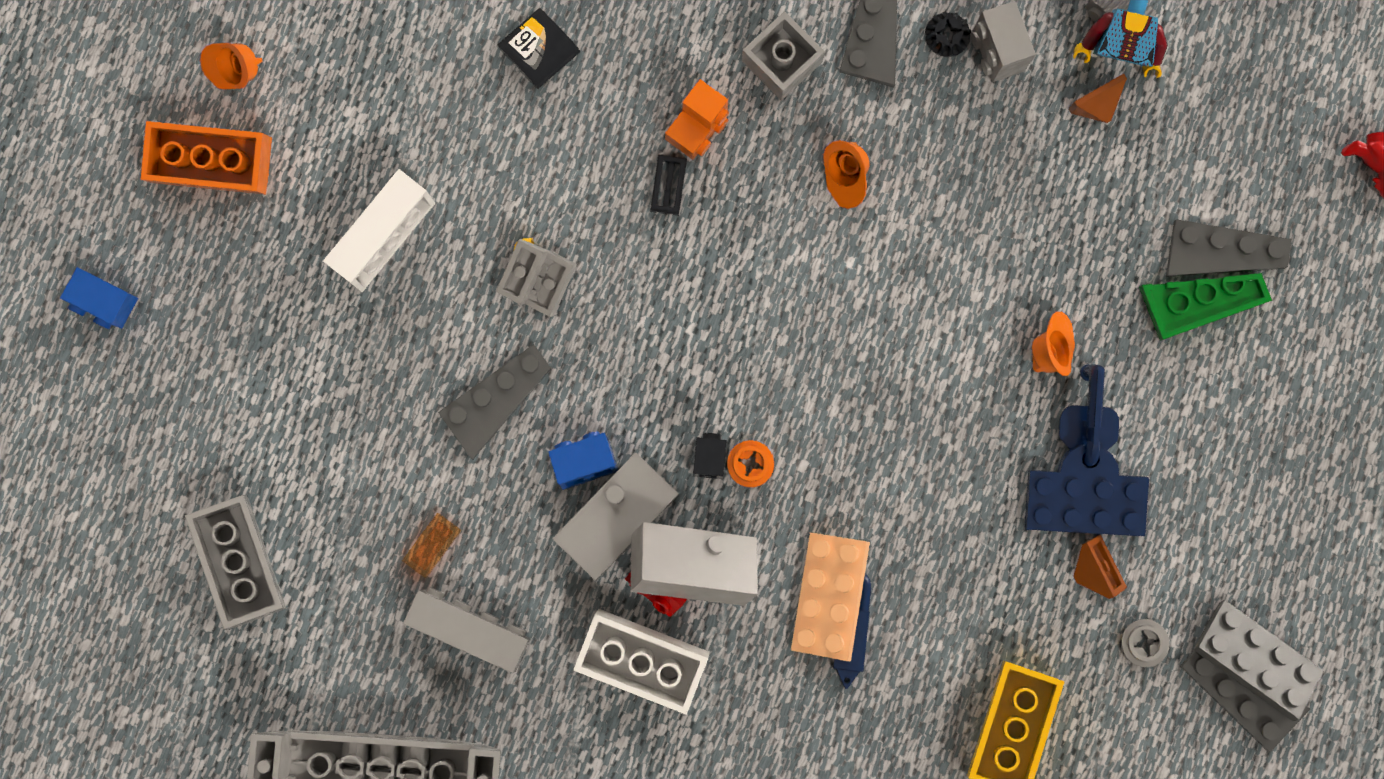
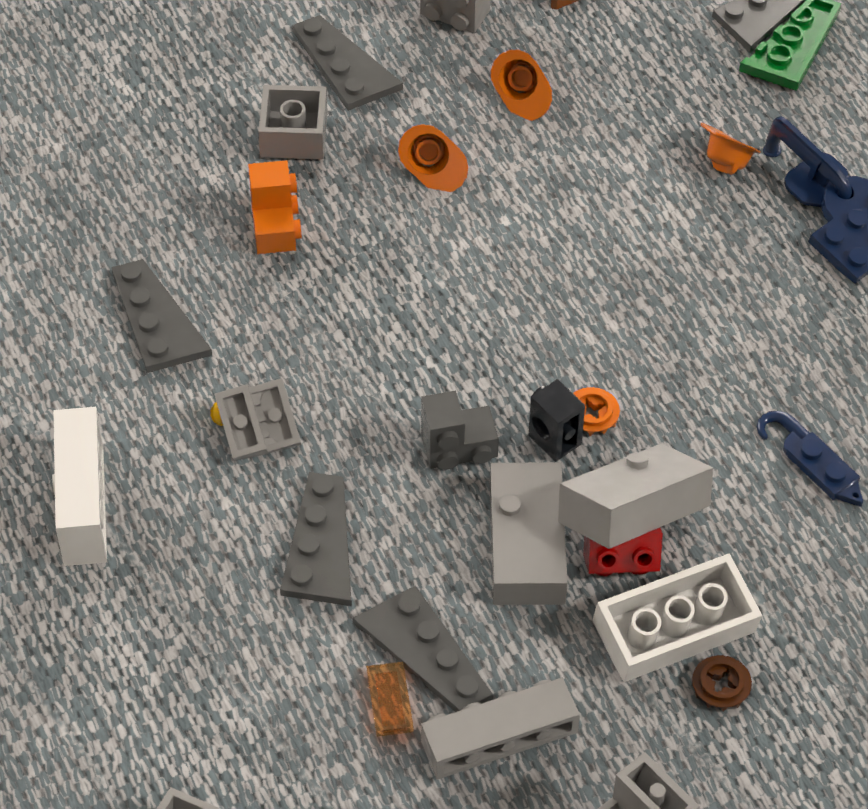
camera: 45 degrees left, 30 degrees down
(485, 523) = (419, 639): none -> dark grey wing
(538, 48) = (77, 268): black slope -> none
(550, 140) = (157, 321): none -> dark grey wing
(583, 460) = (452, 514): blue brick -> none
(621, 734) = (715, 668): none -> reddish brown gear
(645, 406) = (455, 434): none -> dark grey brick
(665, 209) = (309, 297): black tile -> none
(830, 596) = (769, 444): light nougat plate -> none
(939, 43) = (404, 35): black gear -> none
(969, 165) = (521, 72): none -> orange piece

